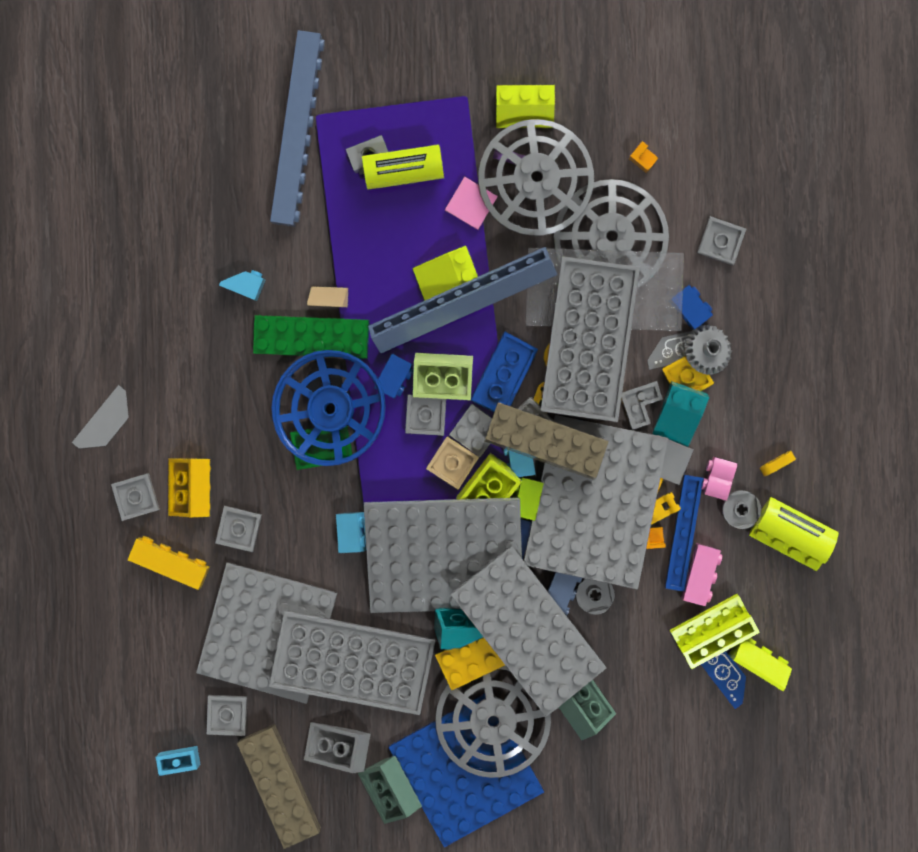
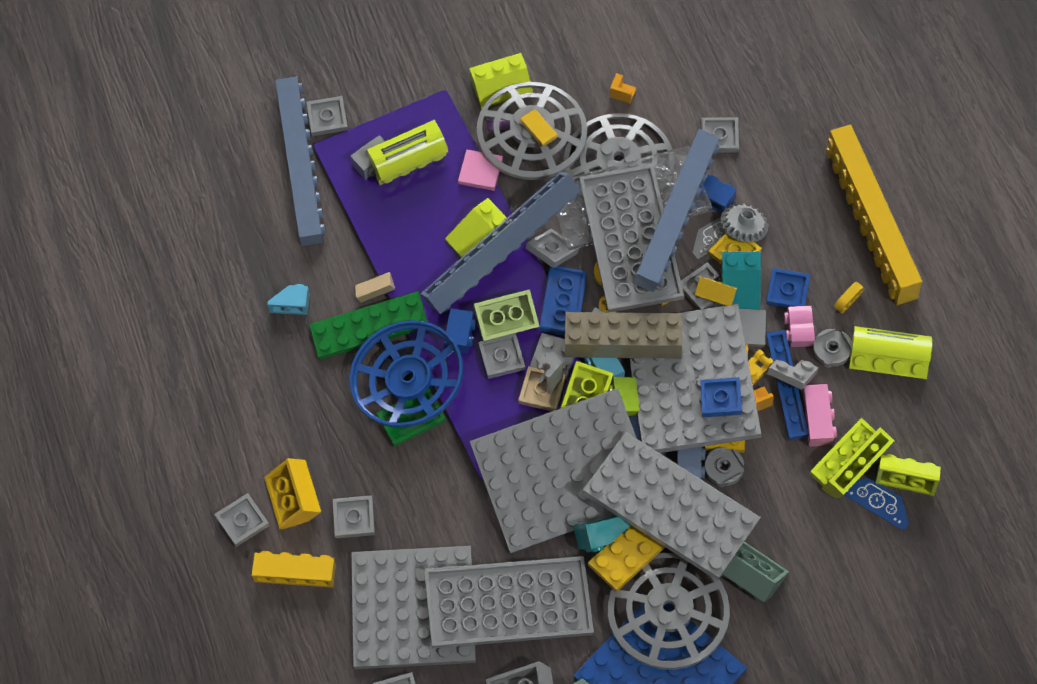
camera: 10 degrees left, 25 degrees down
(105, 421) = (191, 465): light grey sticker -> none
(339, 86) = (327, 116): none -> light grey plate
(351, 532) = (466, 482): medium azure brick -> none
(464, 456) = (552, 371): none -> light grey hinge
(510, 315) = (551, 248): none -> light grey plate
(541, 186) = (538, 128): none -> yellow tile
(613, 541) = (721, 397): none -> blue plate
(643, 329) = (676, 210): none -> sand blue brick
(652, 419) = (715, 291): none -> yellow tile
(694, 532) = (797, 376): none -> light grey plate
(723, 434) = (787, 288): none -> blue plate
(835, 387) = (873, 215): none -> yellow brick

